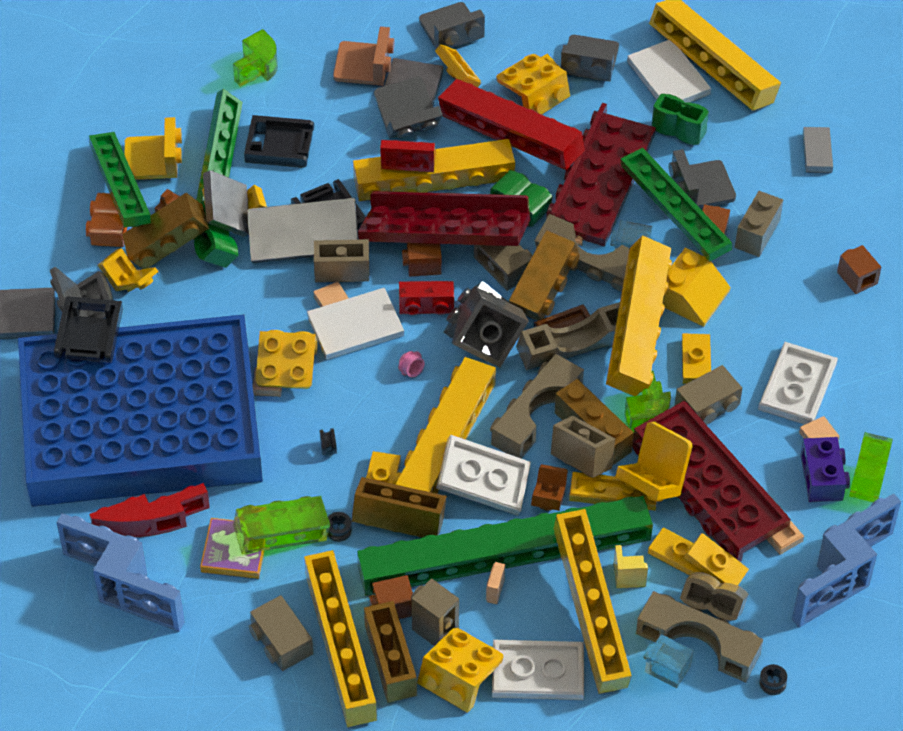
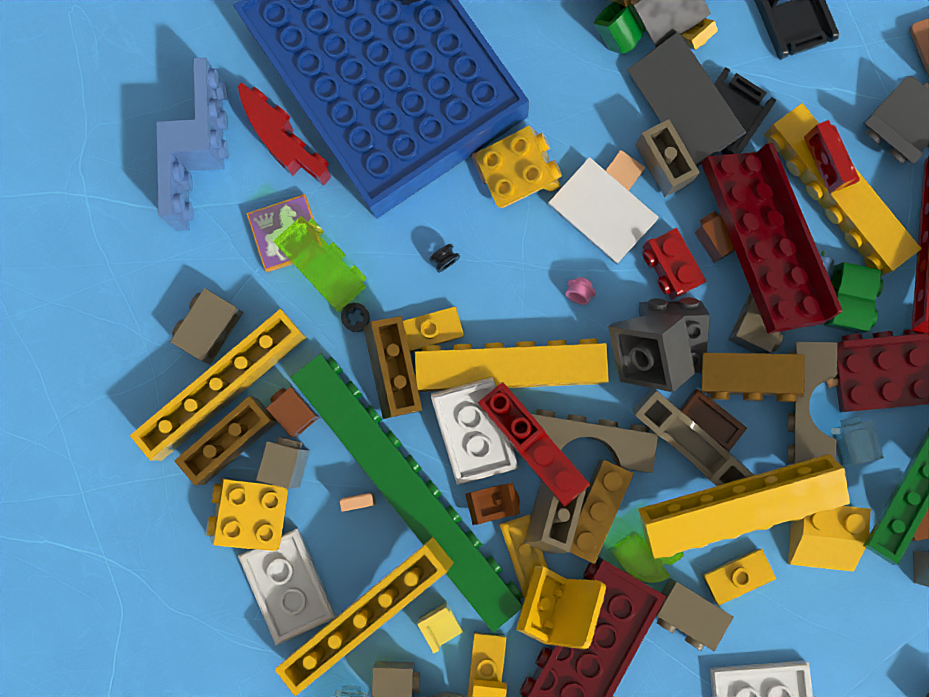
camera: 65 degrees right, 30 degrees up
(518, 431) = (533, 444): none -> red slope

